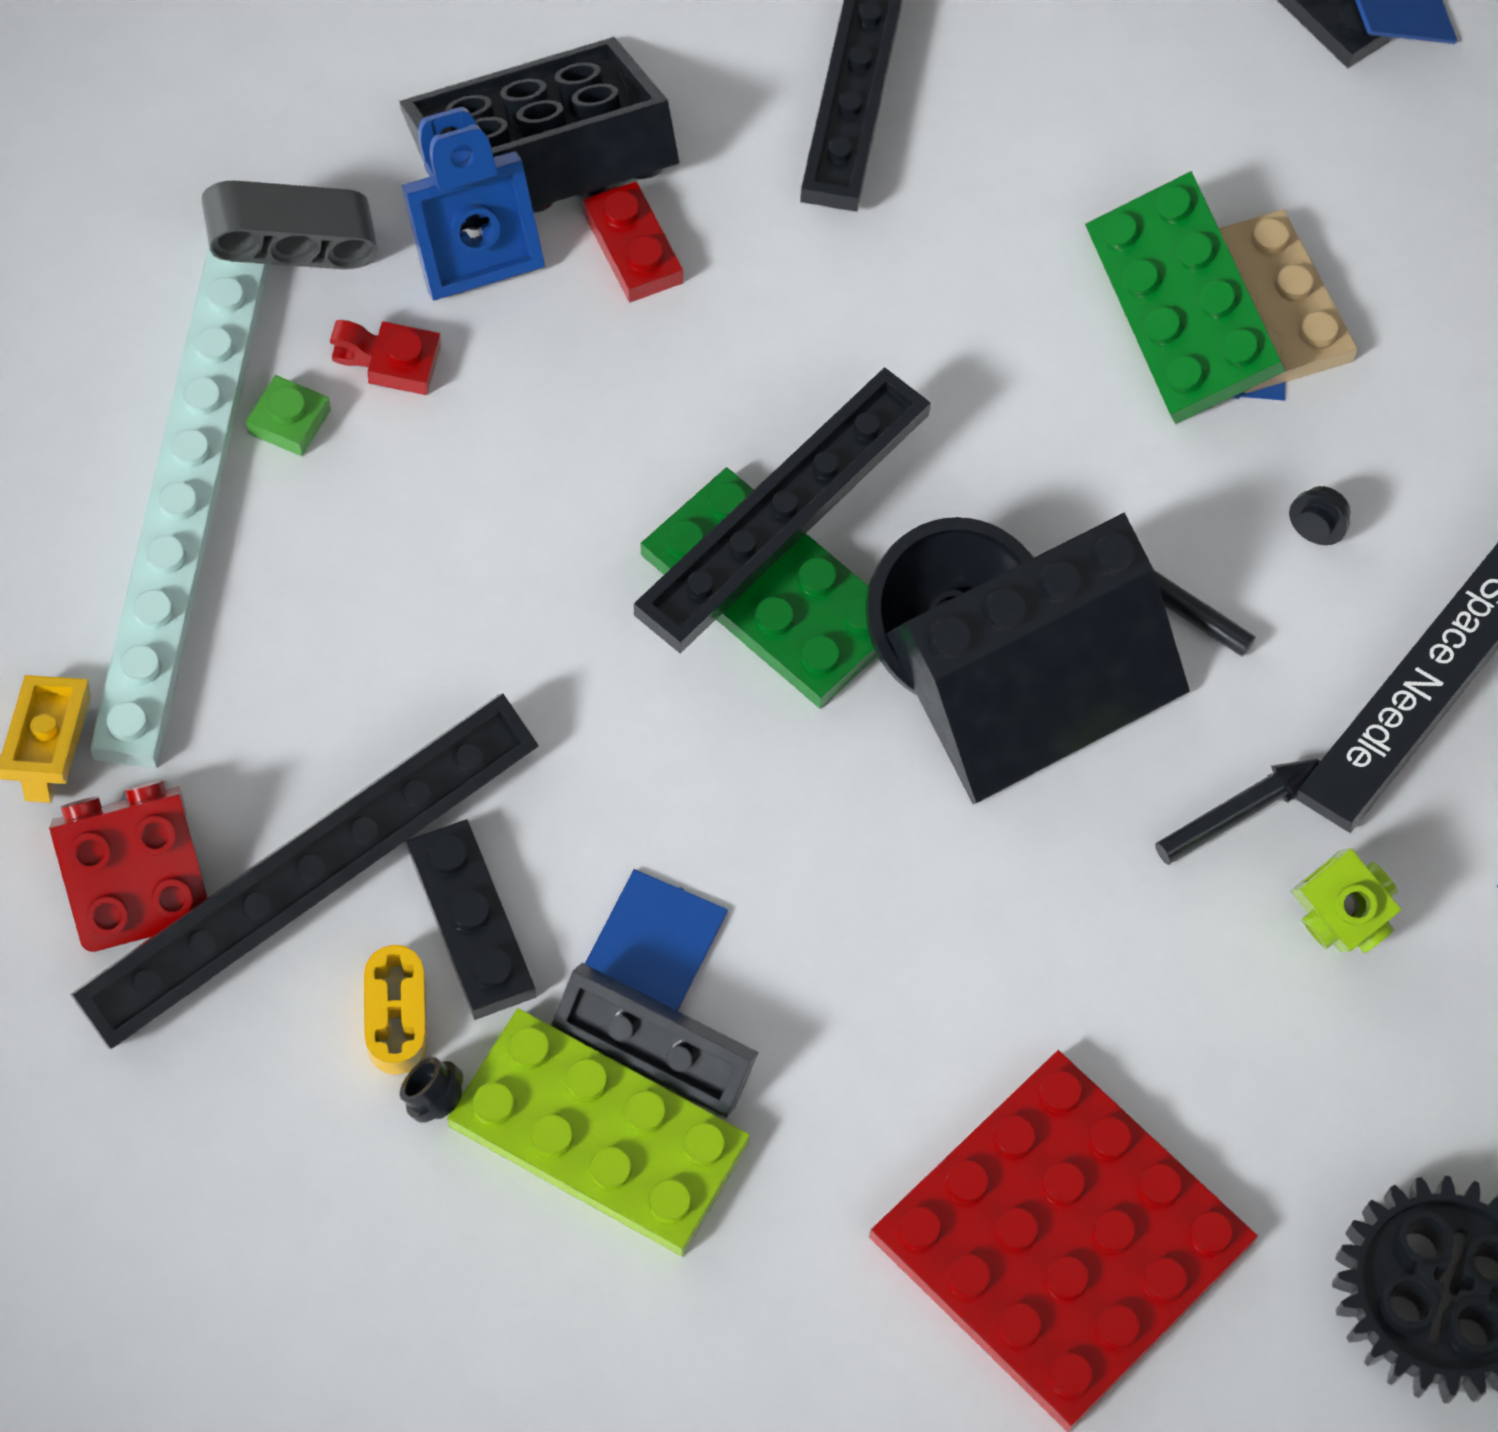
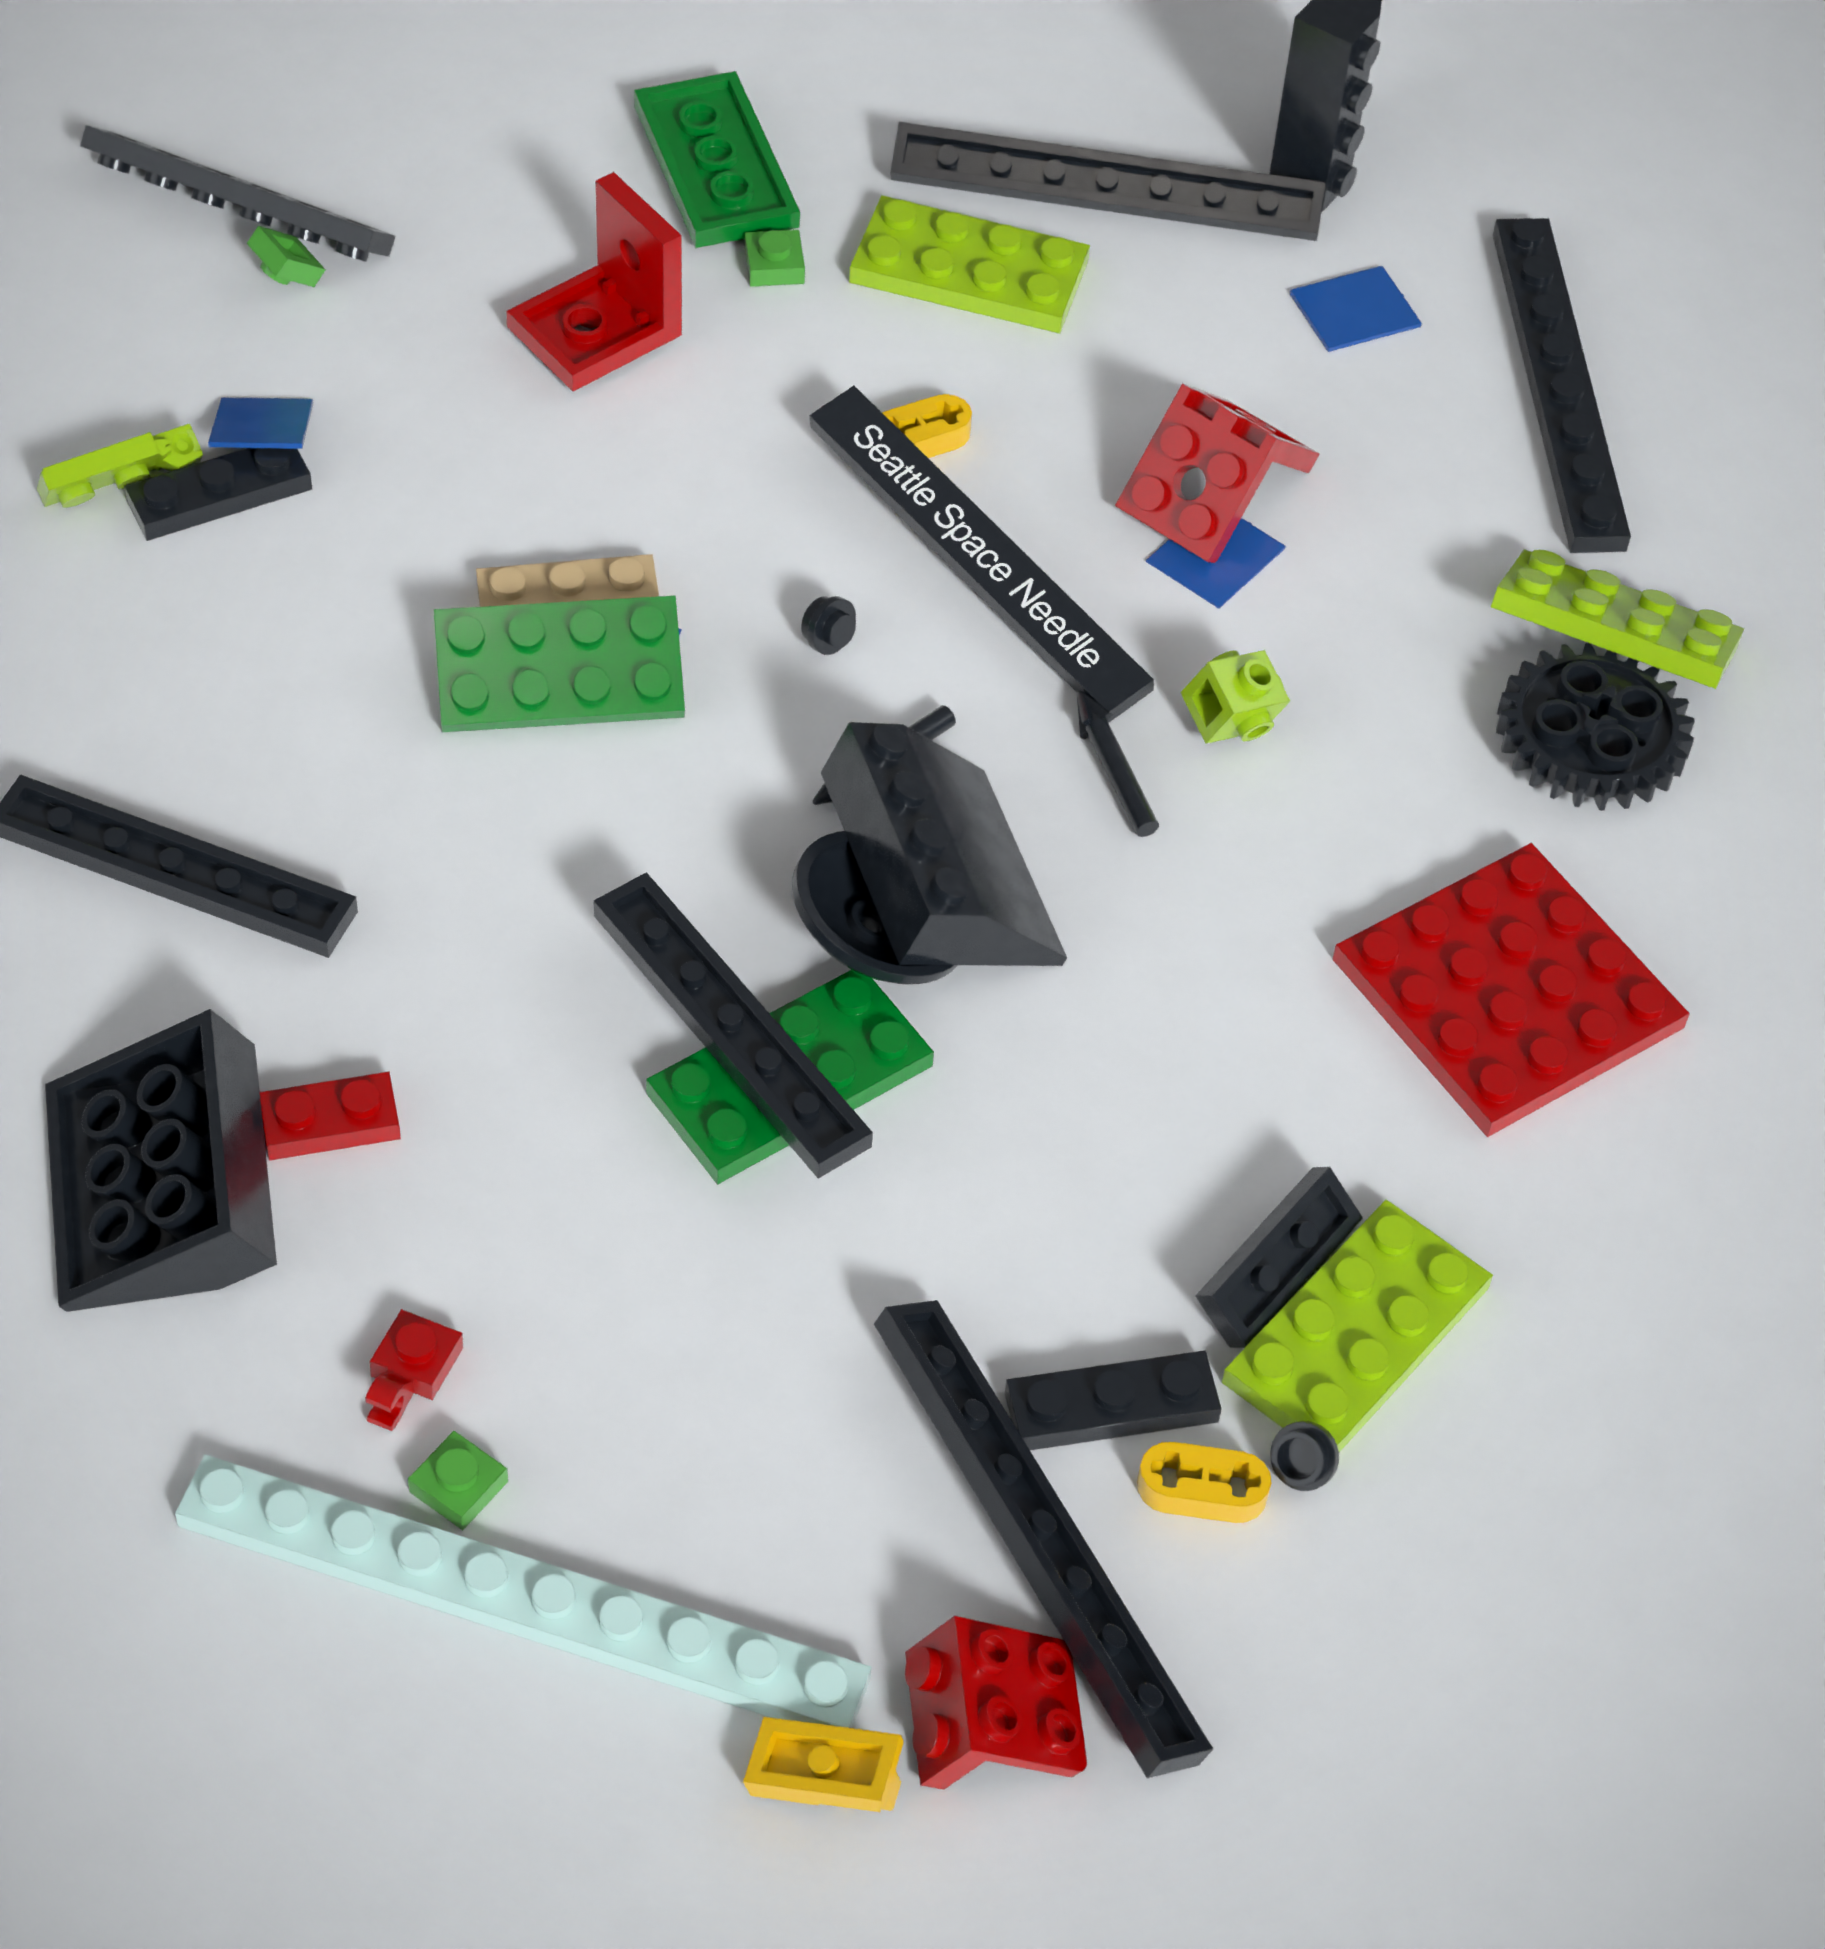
camera: 80 degrees left, 10 degrees down
(288, 225) = (224, 1422): dark grey beam -> none
(467, 183) = (283, 1227): blue plate -> none
(656, 938) = (1159, 1250): blue window -> none

